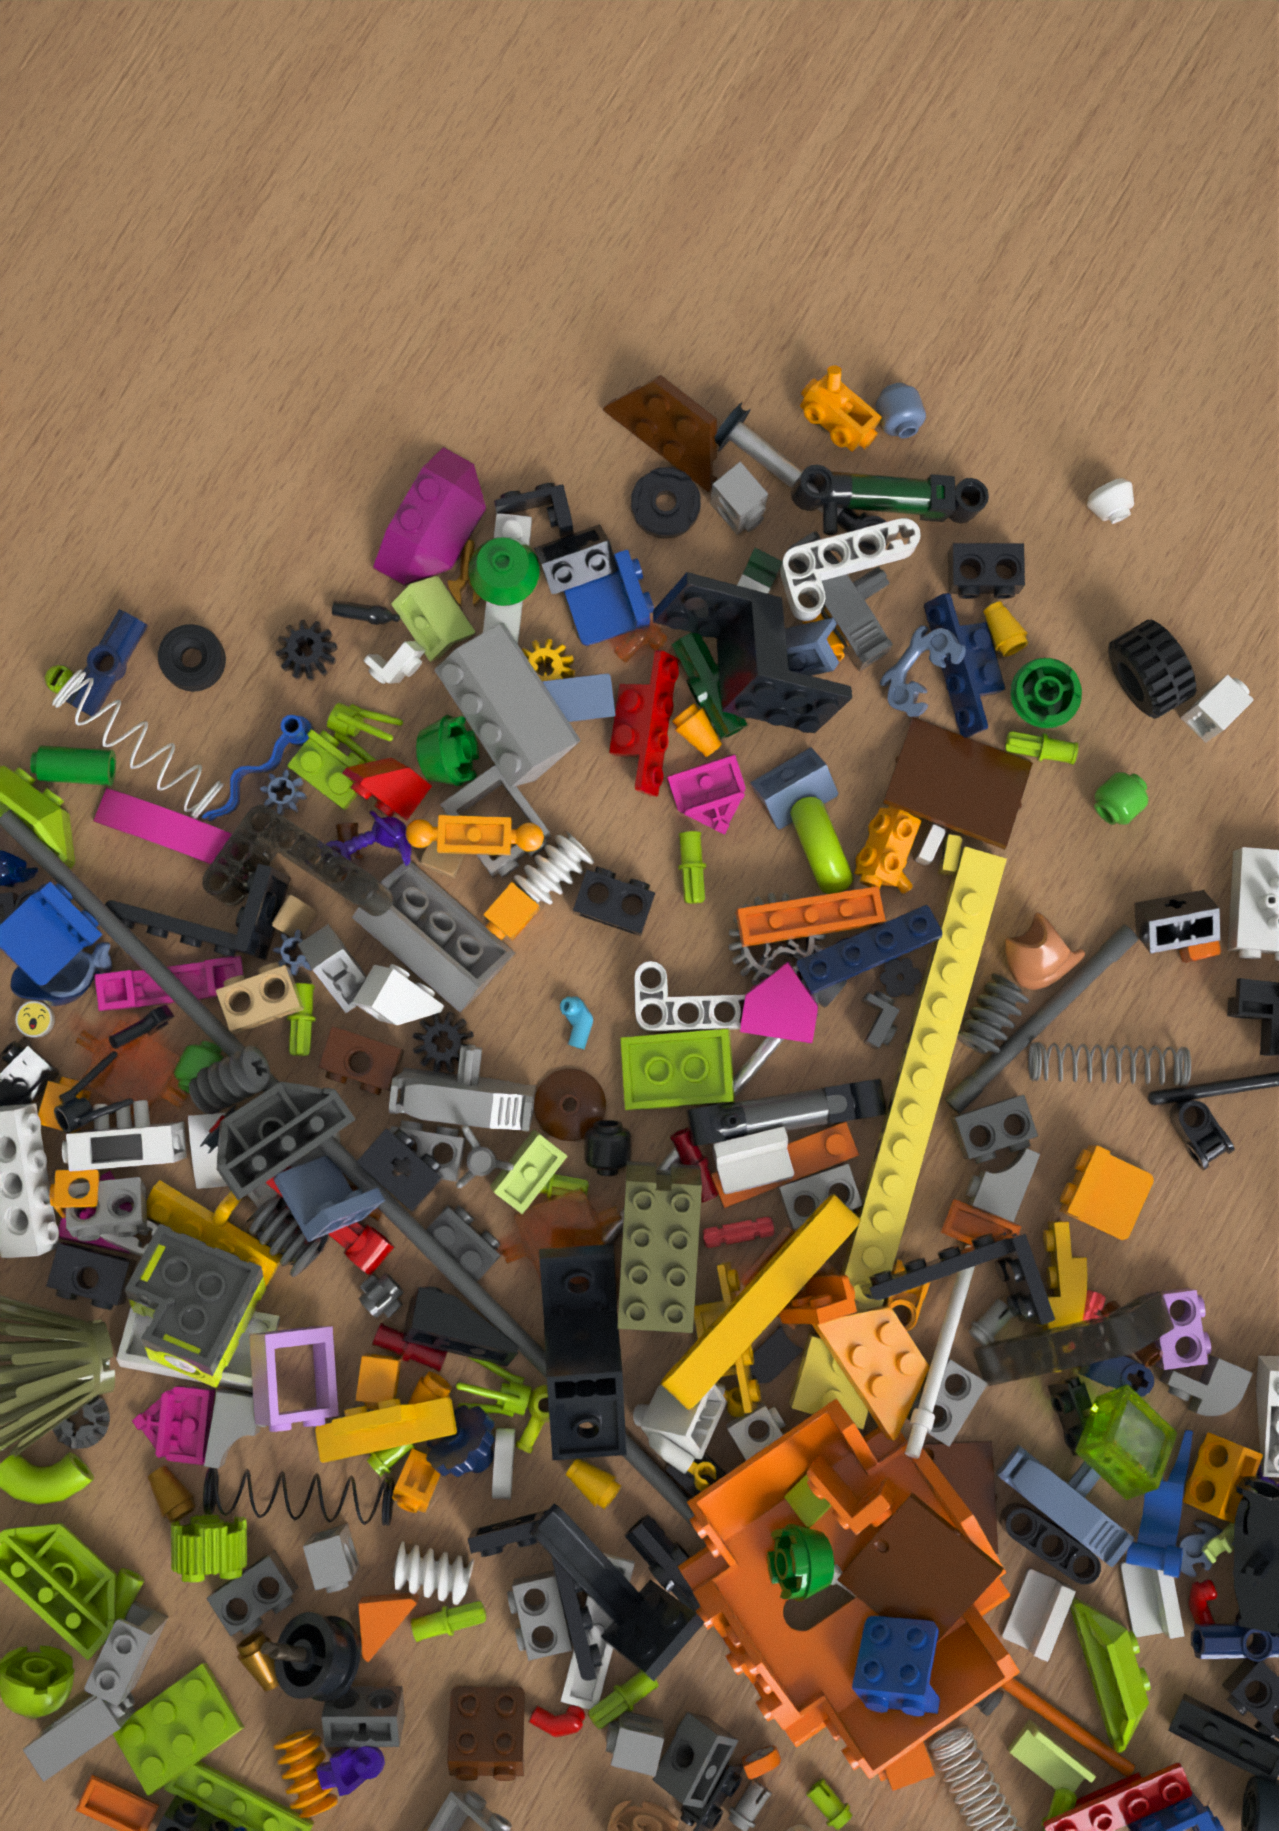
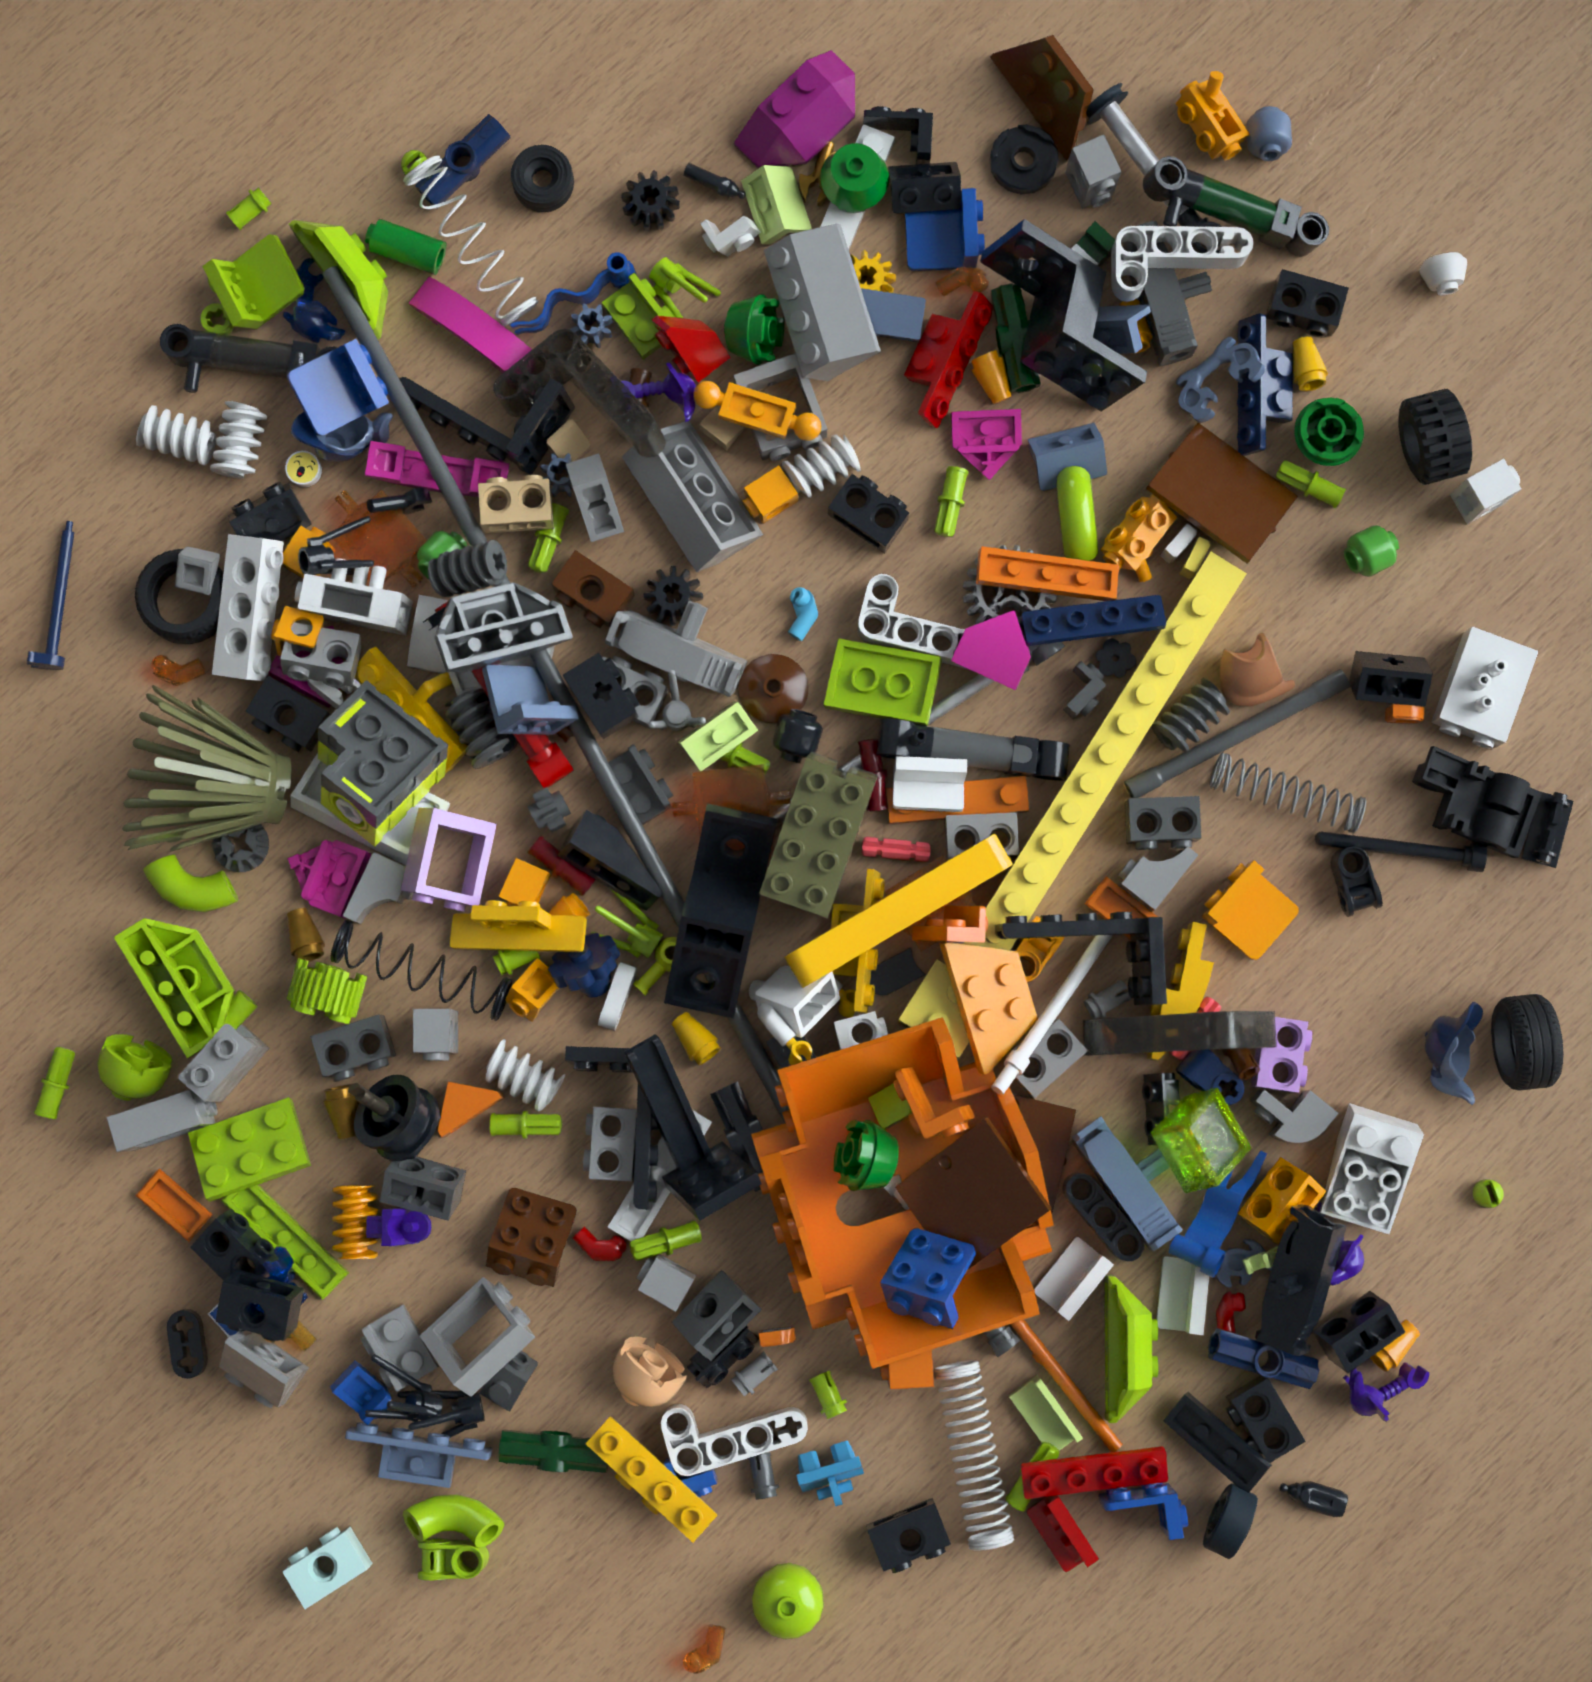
camera: 20 degrees right, 0 degrees up
(394, 998) = (640, 539): white slope -> none

